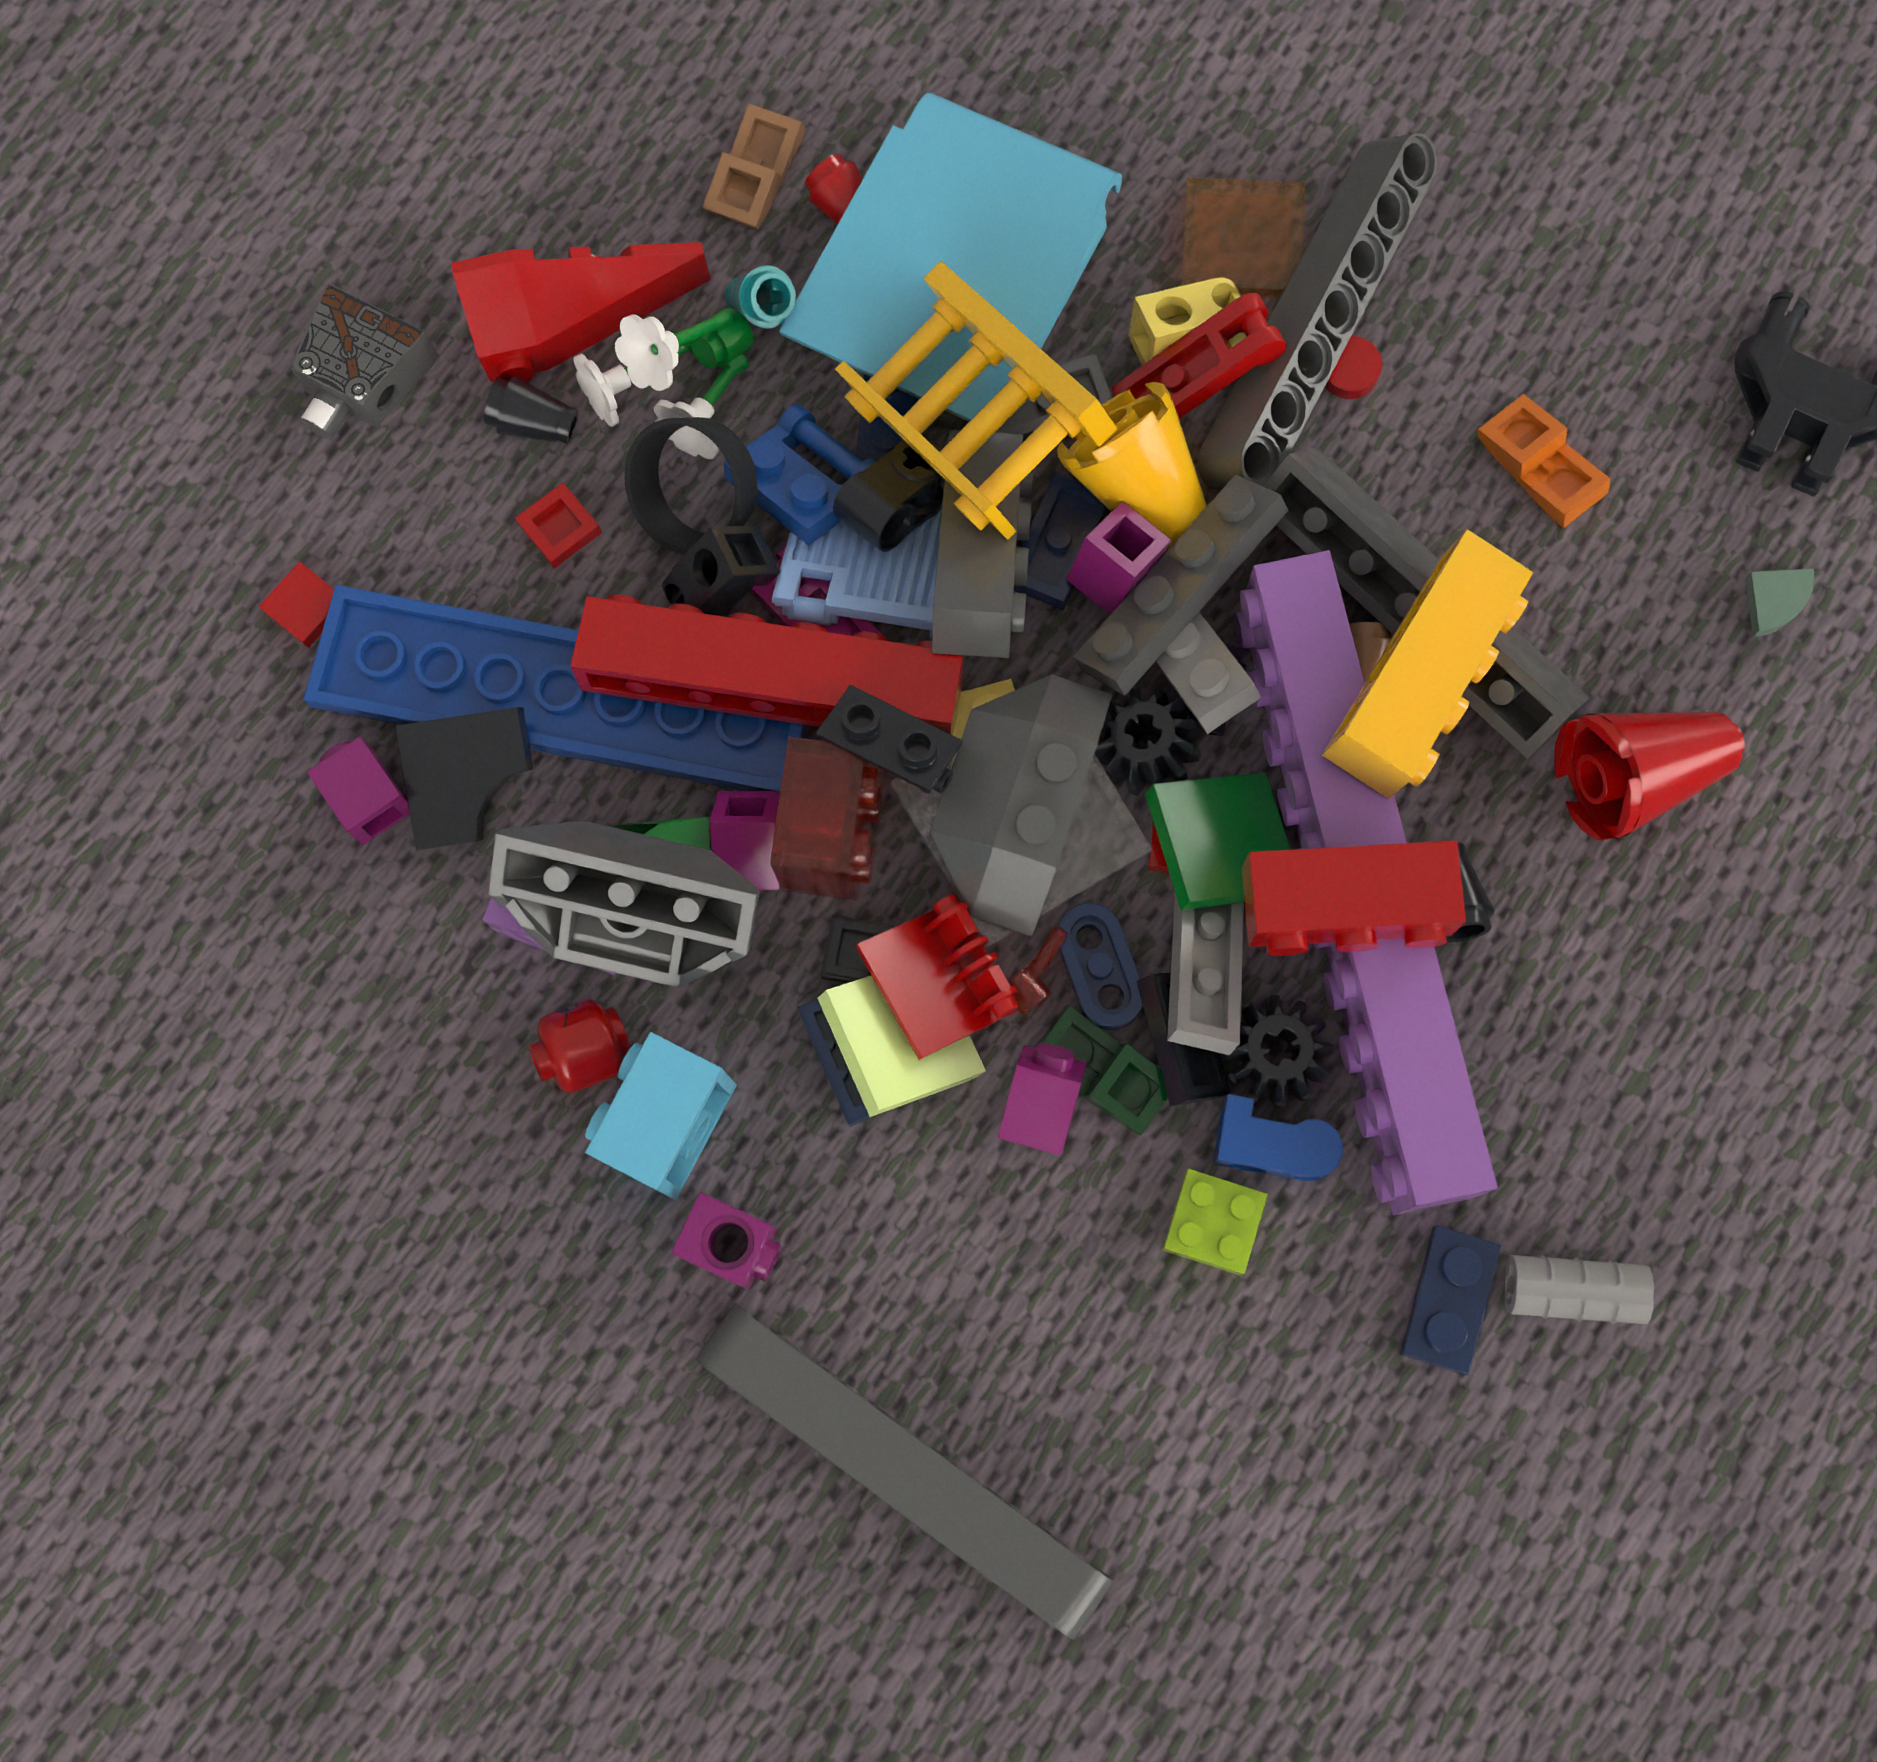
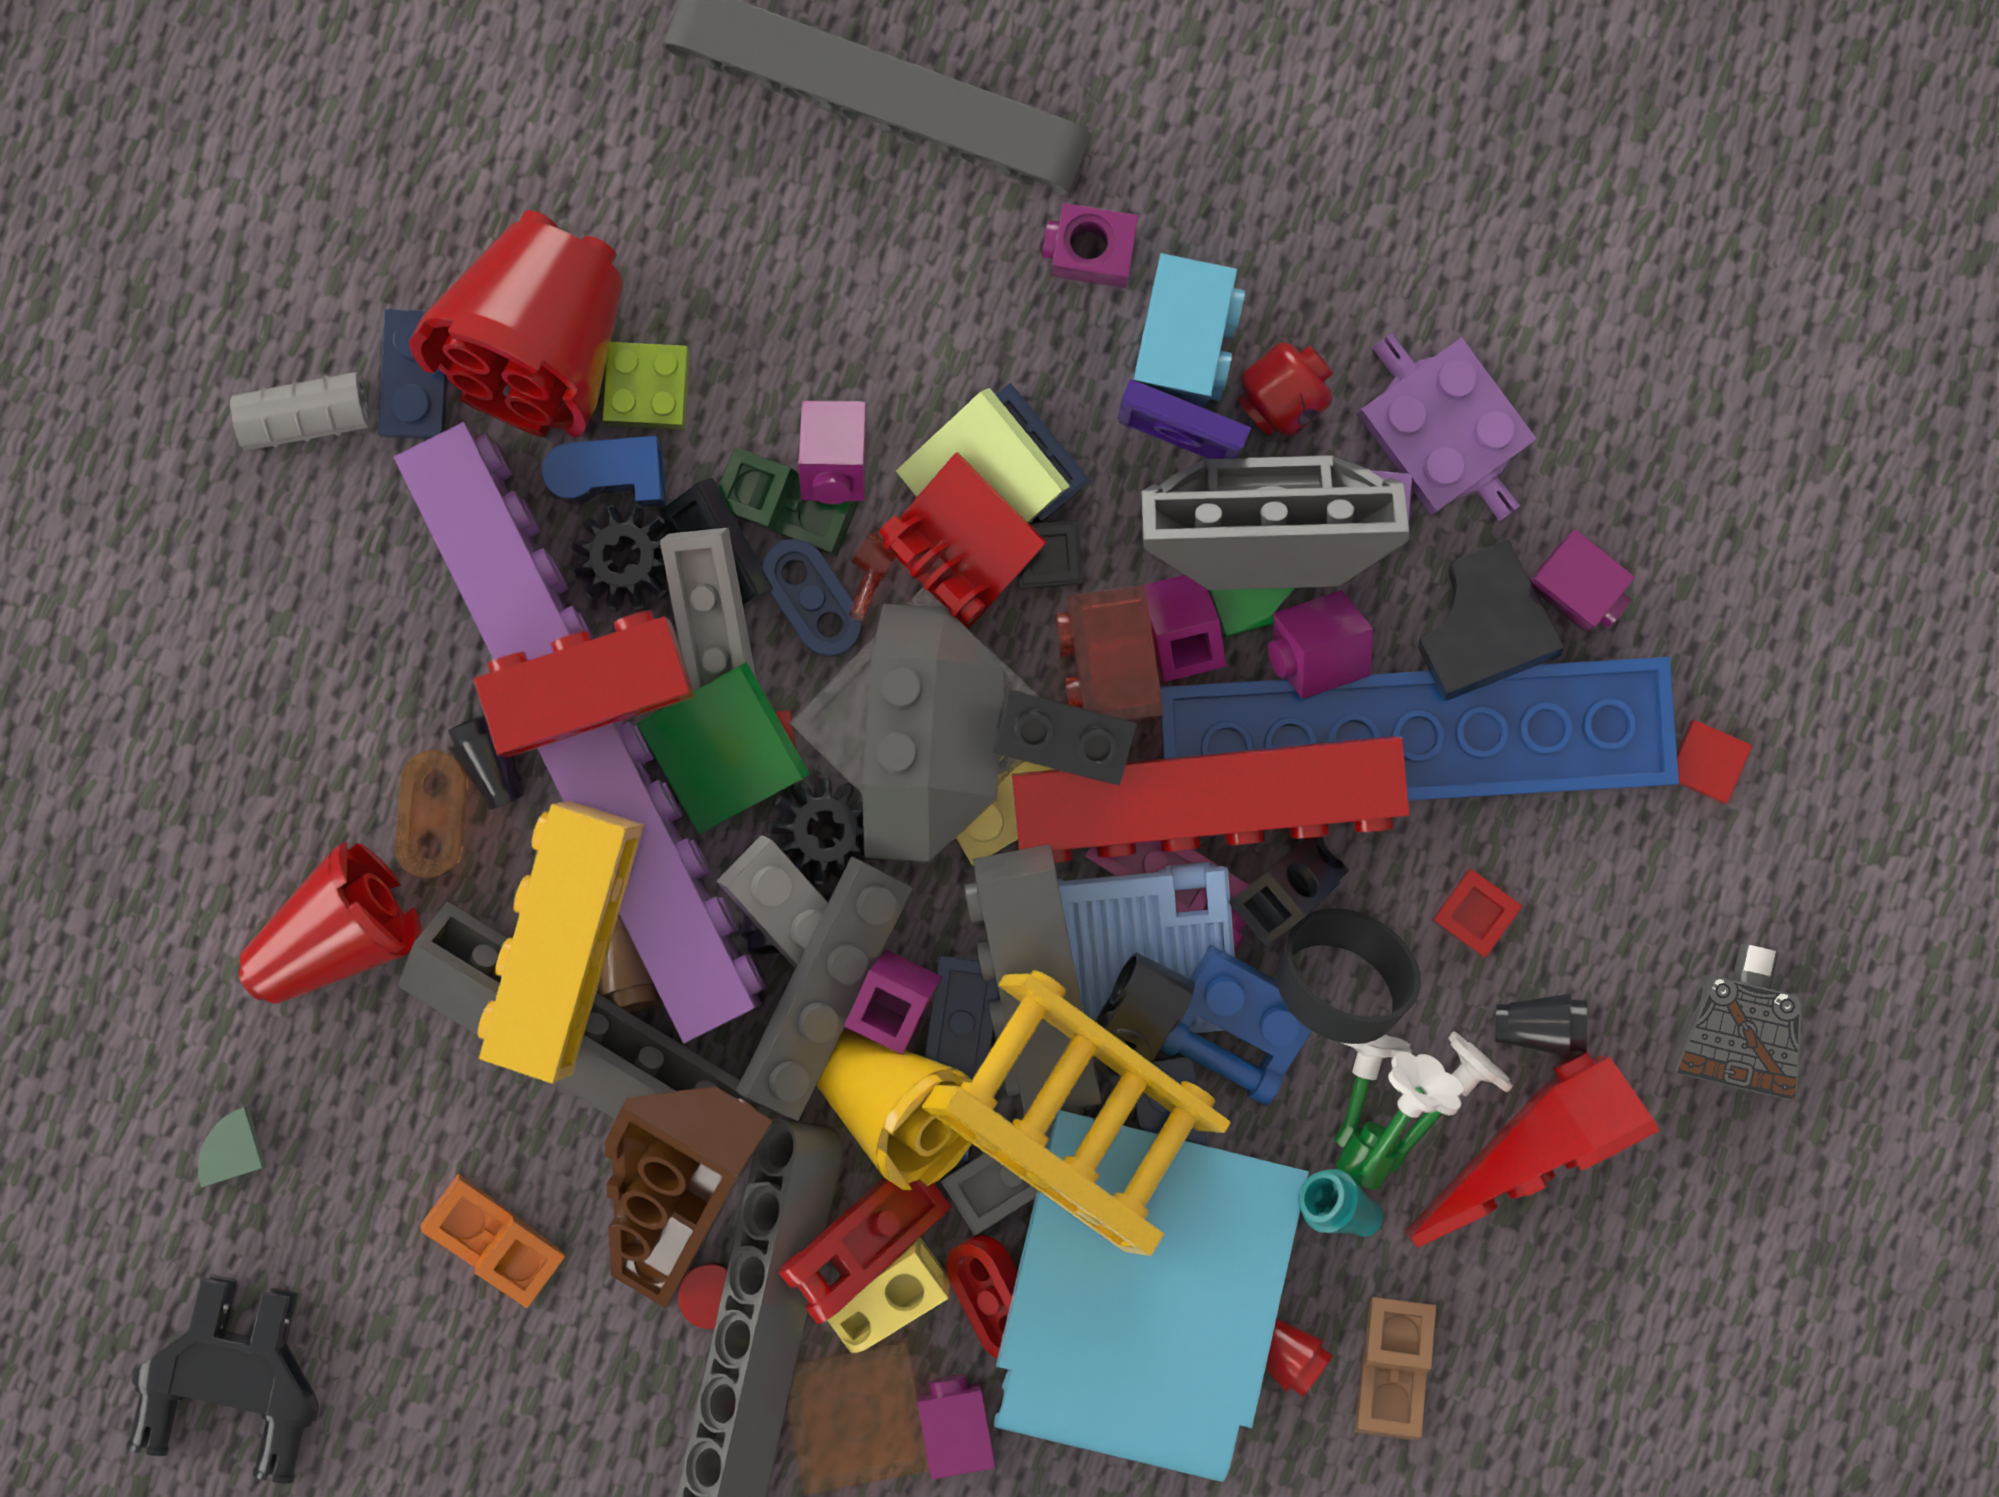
camera: 160 degrees right, 10 degrees up
(439, 974) = (1446, 426): none -> medium lavender plate
(622, 786) = (1321, 644): none -> magenta brick
(688, 1027) = (1181, 423): none -> dark purple tile
(1097, 310) = (982, 1290): none -> red plate
(1156, 201) = (955, 1427): none -> magenta brick
(1322, 1306) = (528, 317): none -> red cone
(1355, 438) = (671, 1178): none -> reddish brown wedge
(1523, 857) = (431, 814): none -> clear orange plate

